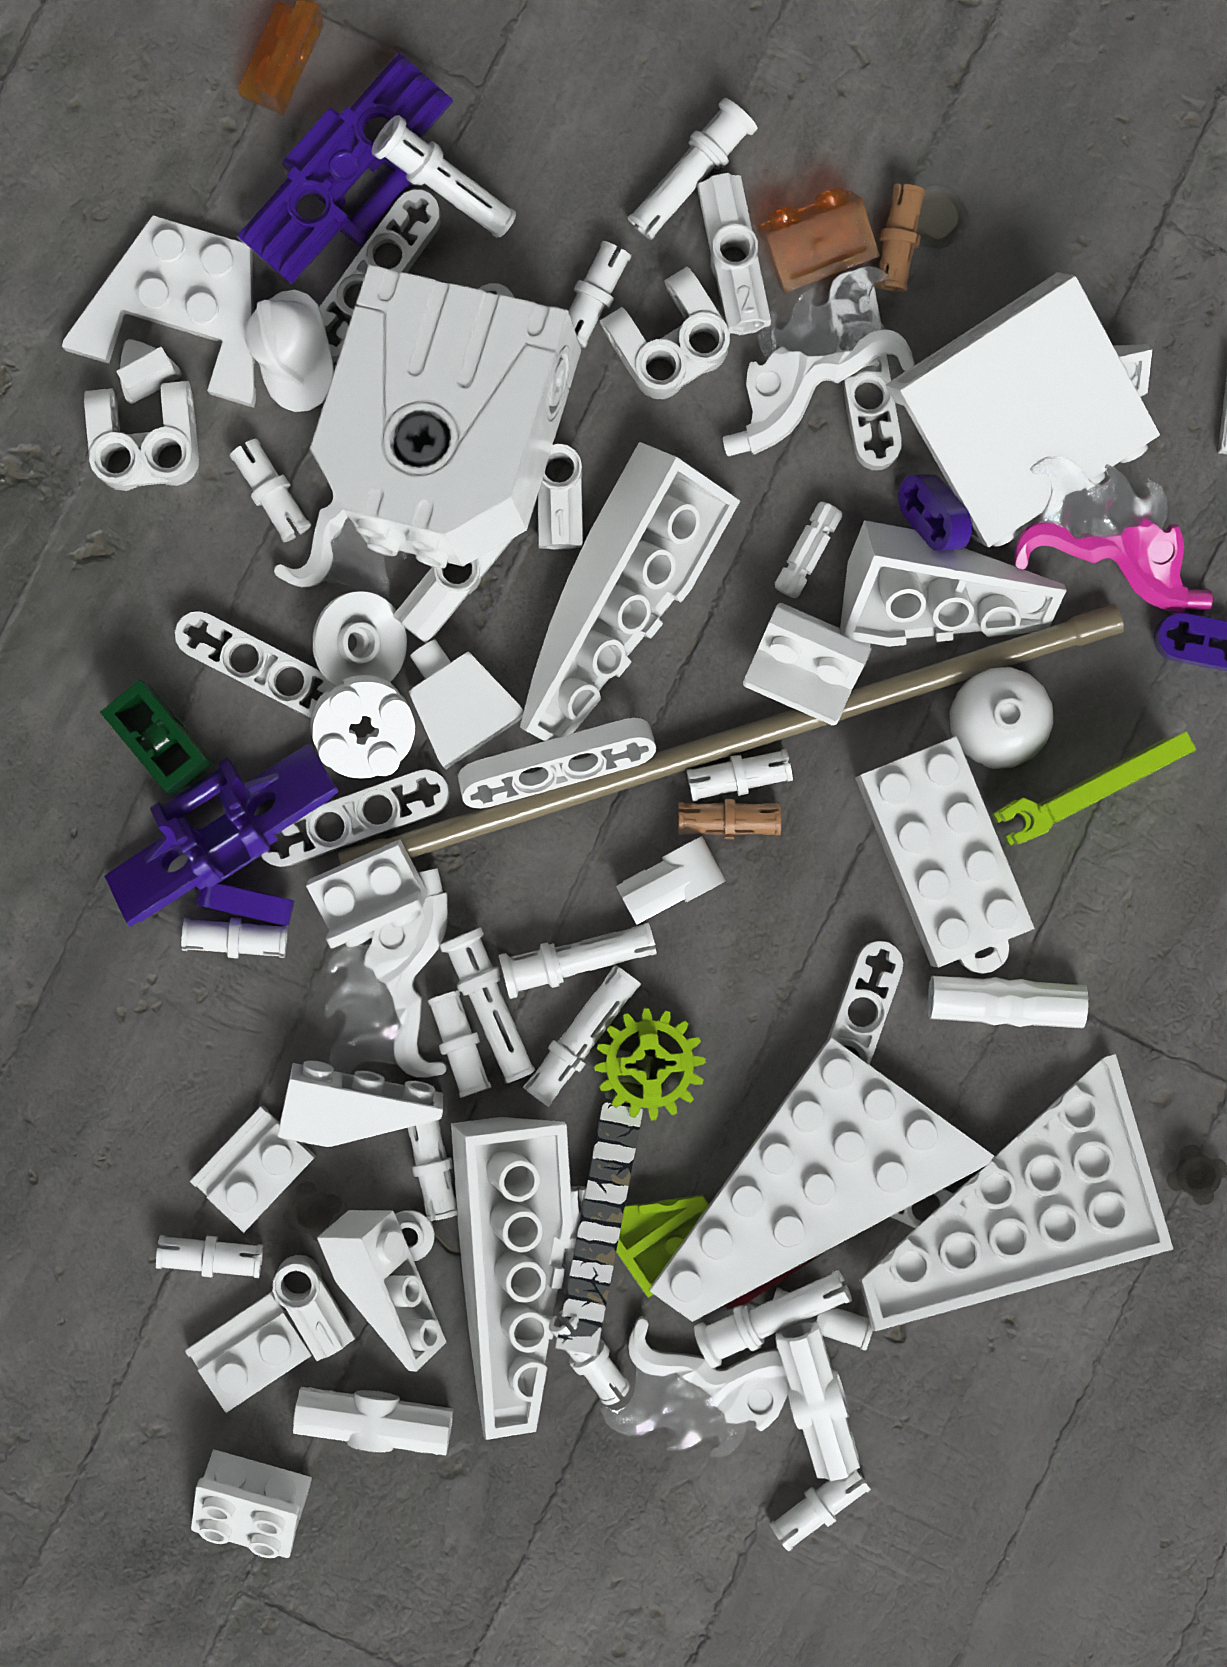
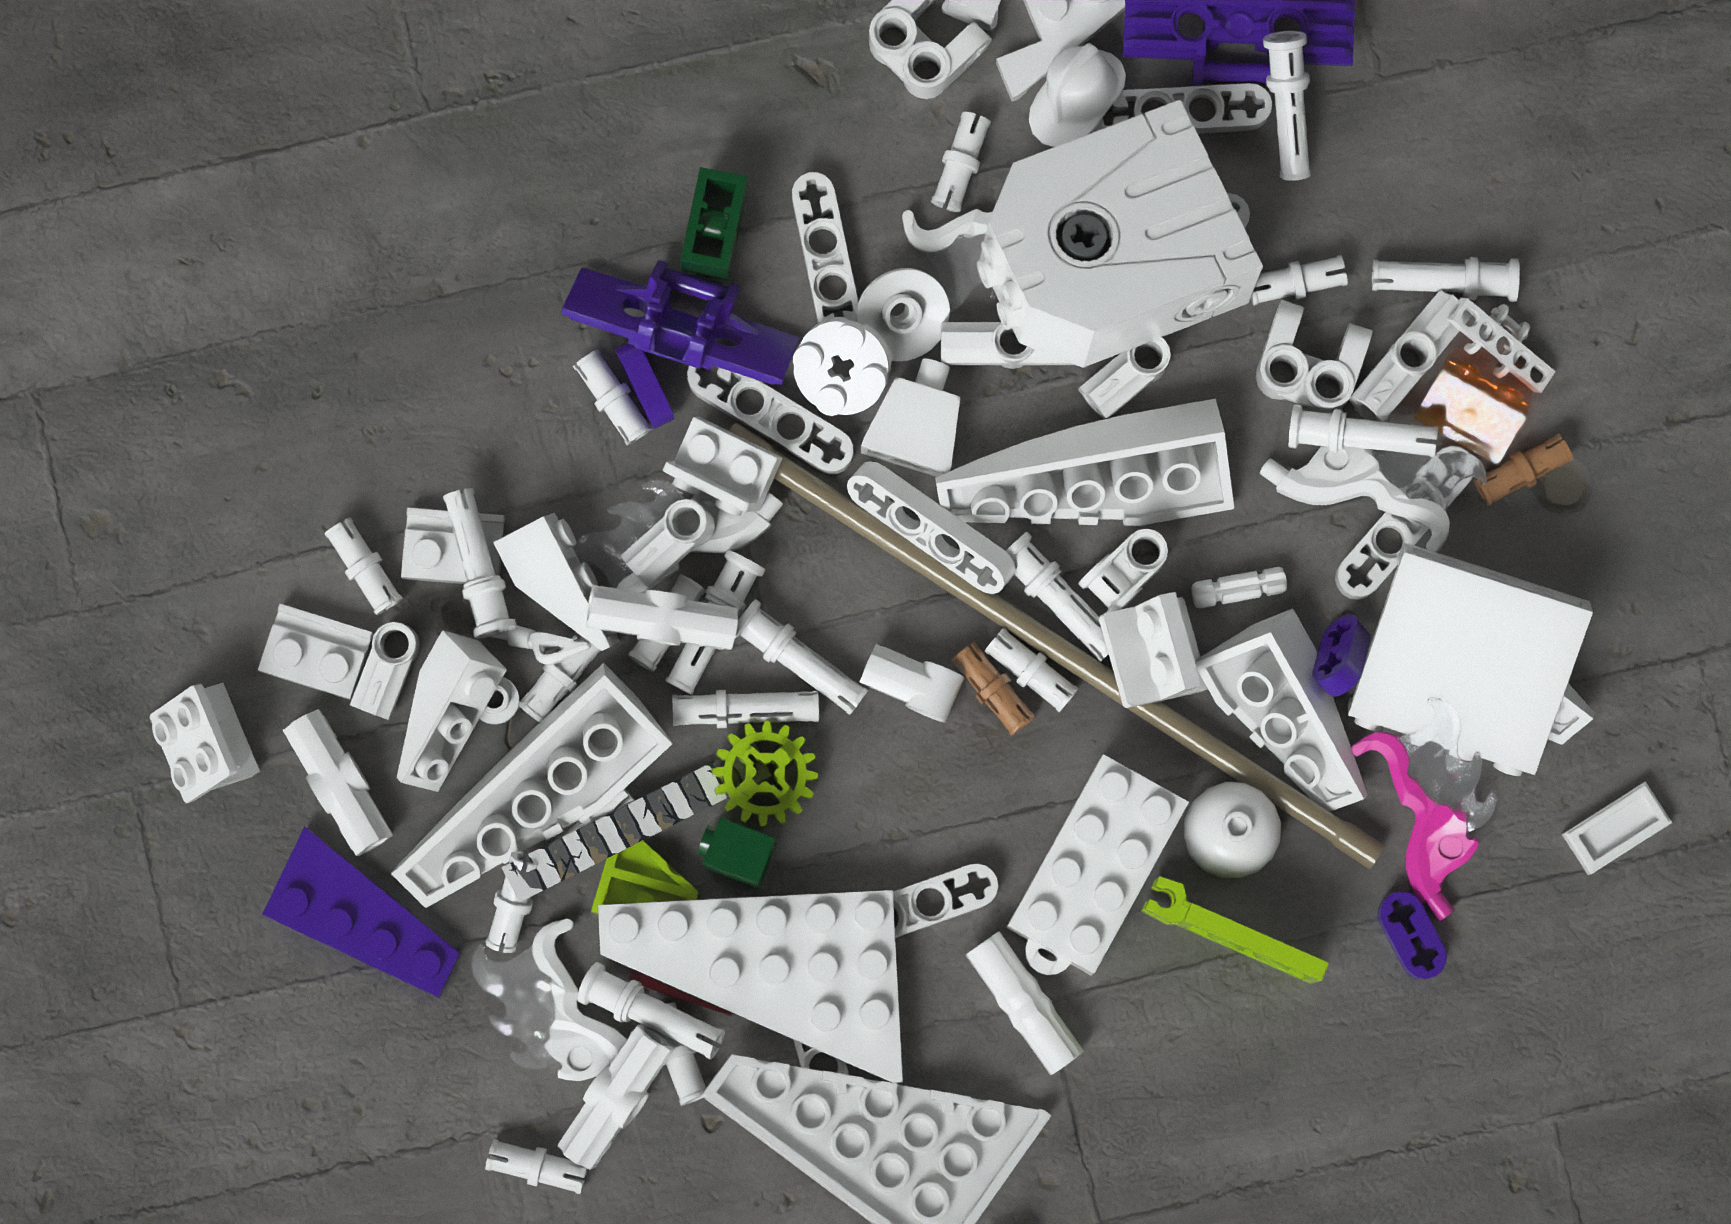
camera: 50 degrees right, 5 degrees down
(308, 1173) = (482, 585): none -> white pin
(390, 1163) = (542, 642): none -> white hand
(394, 994) = (665, 545): none -> white piece
(454, 1048) = (662, 617): none -> white piece
(490, 1494) = (348, 912): none -> dark purple wing
(676, 705) = (1044, 581): none -> white pin
(698, 1142) = (737, 852): none -> dark green brick
(721, 634) = (1124, 572): none -> white piece
(747, 363) = (1337, 430): none -> white pin
(790, 161) = (1513, 346): none -> white piece

